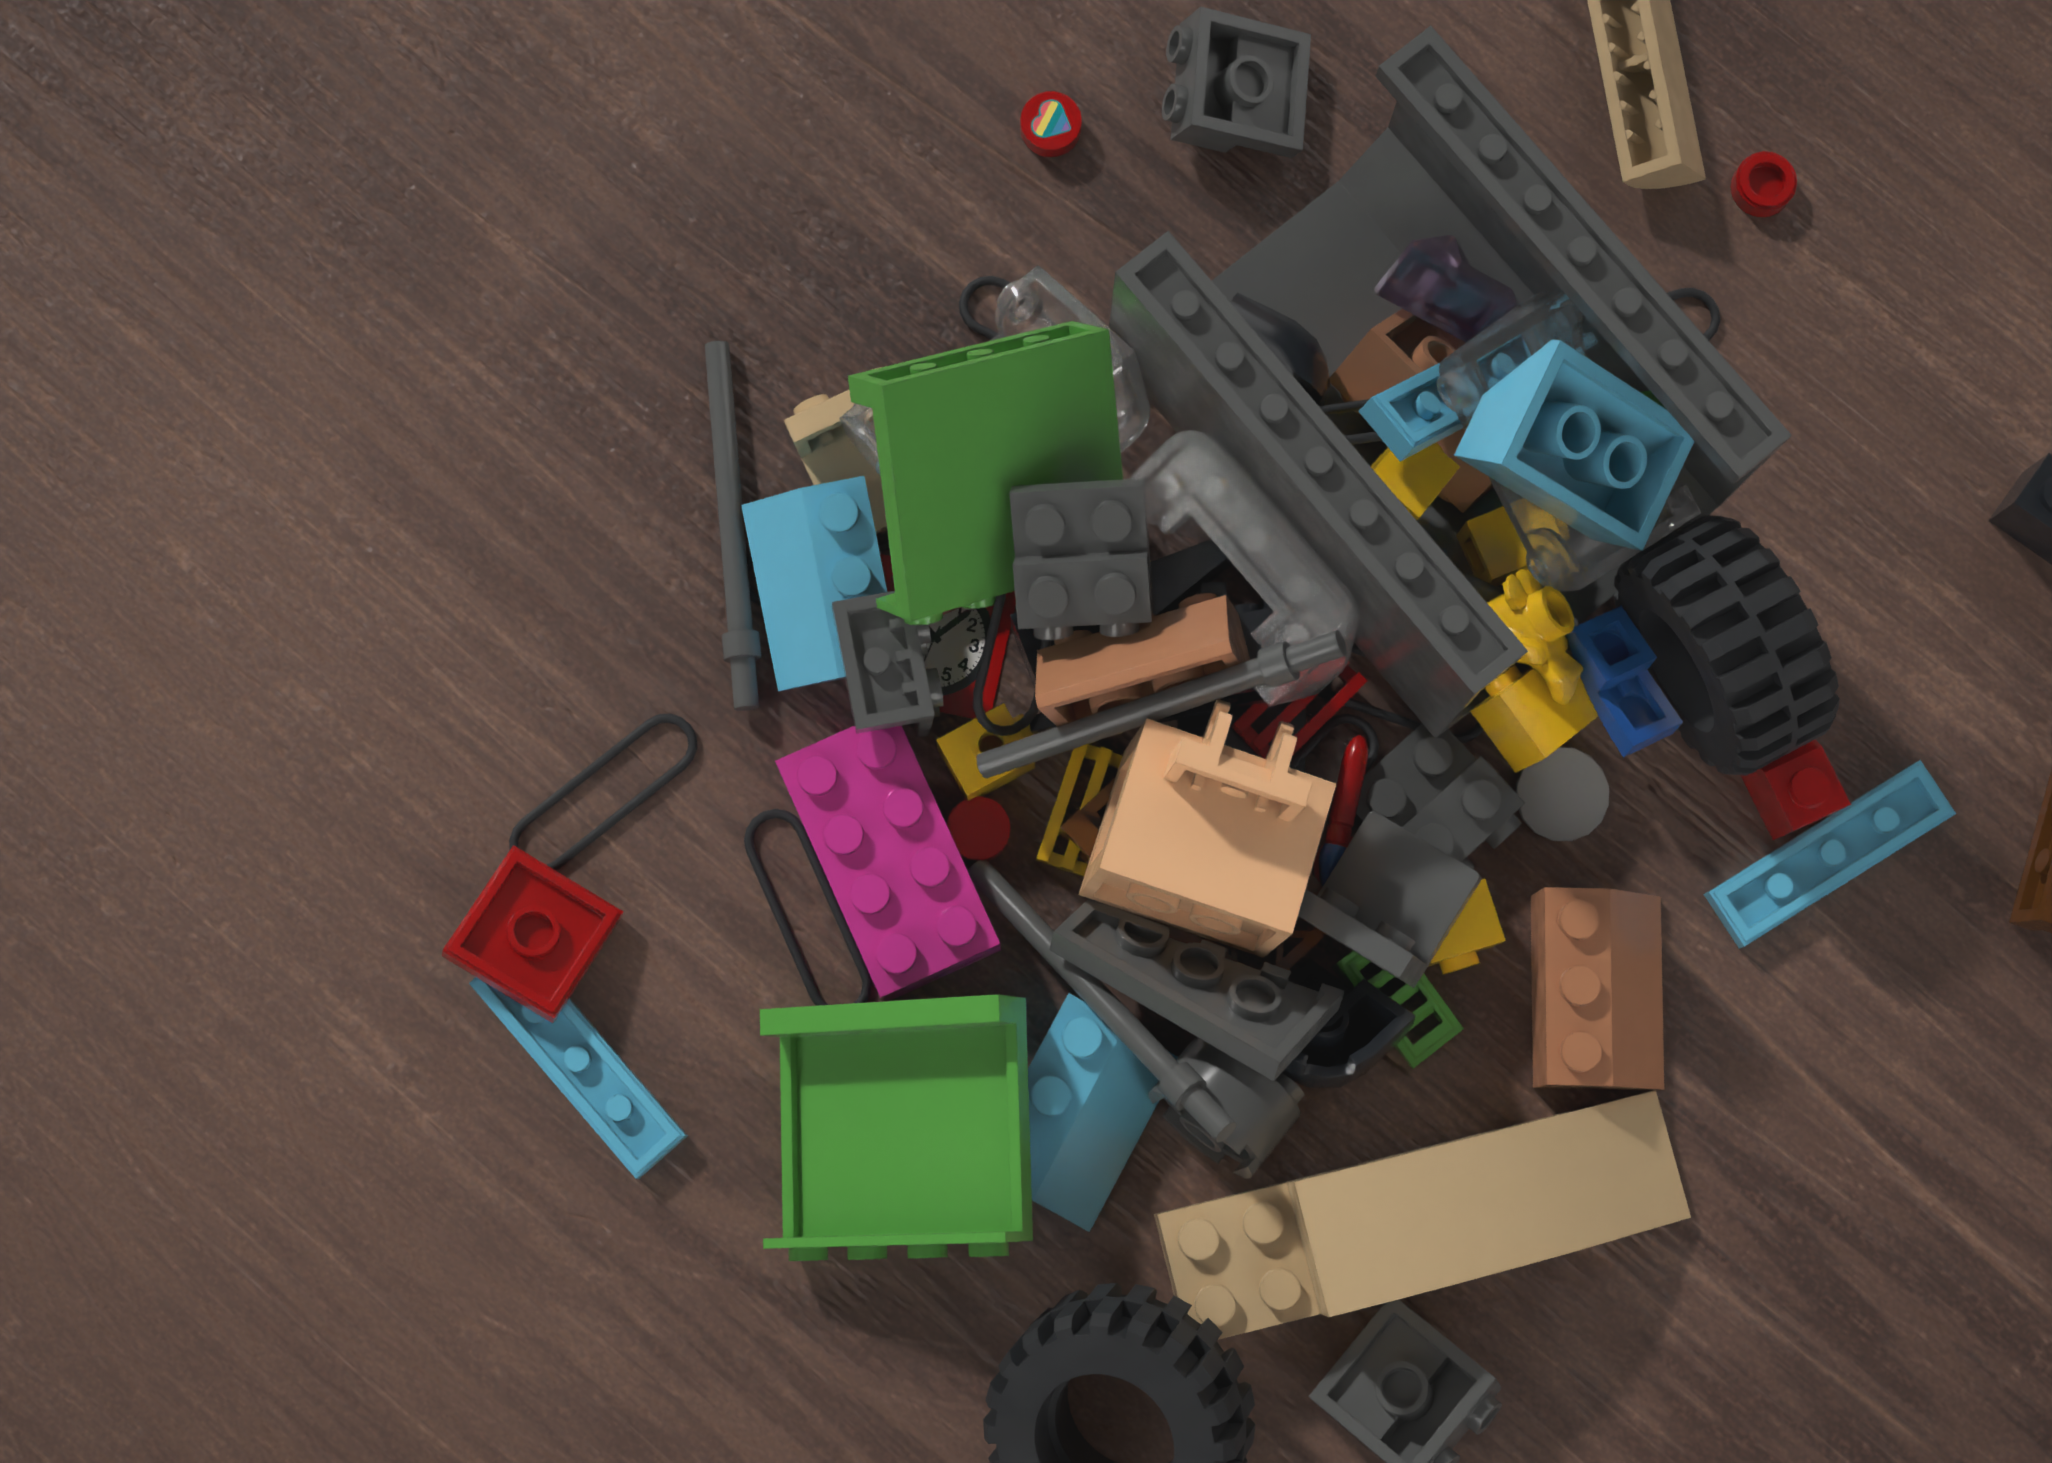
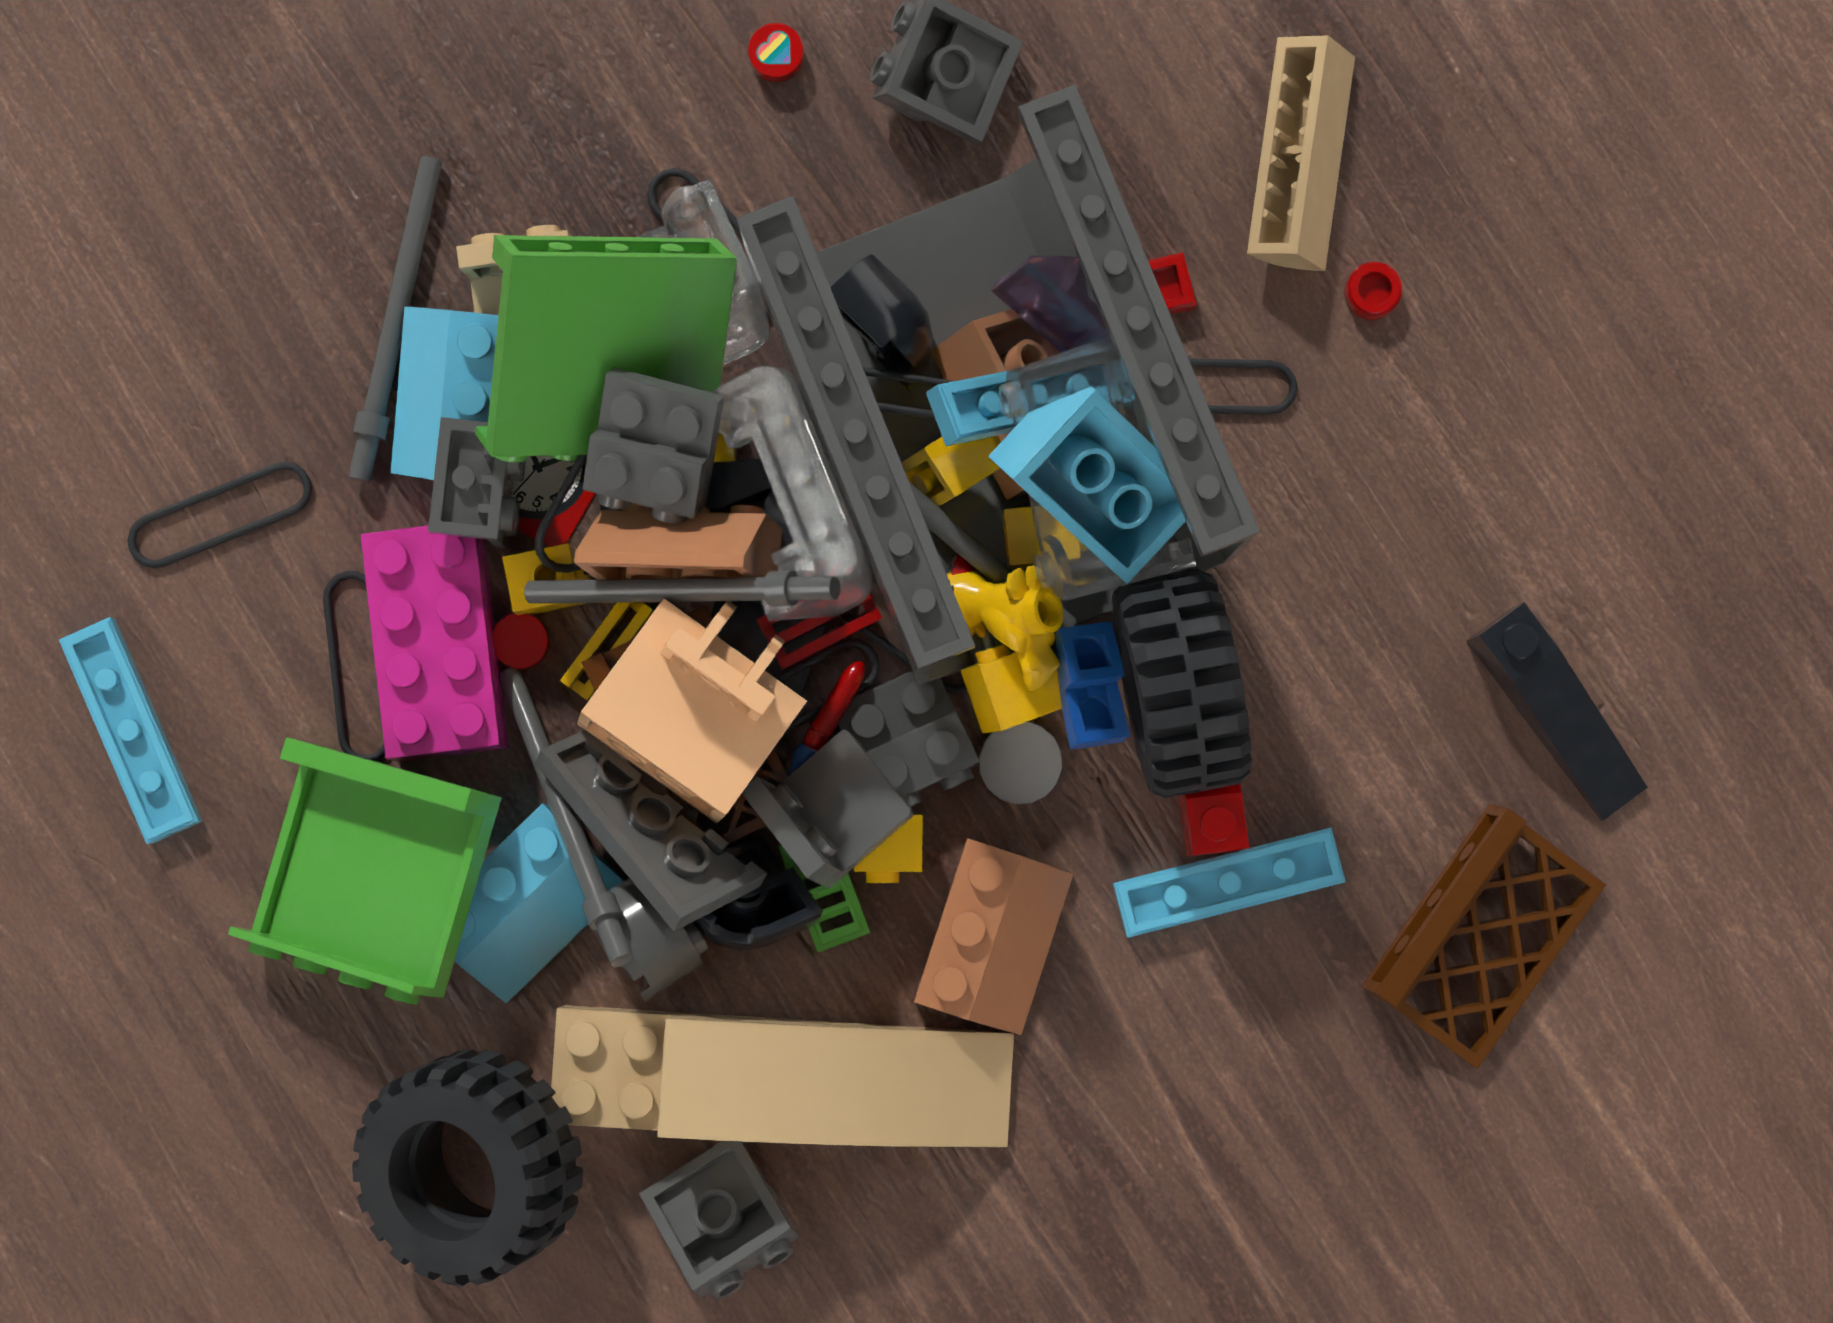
camera: 20 degrees right, 5 degrees up
(532, 934) = (122, 615): red tile -> none

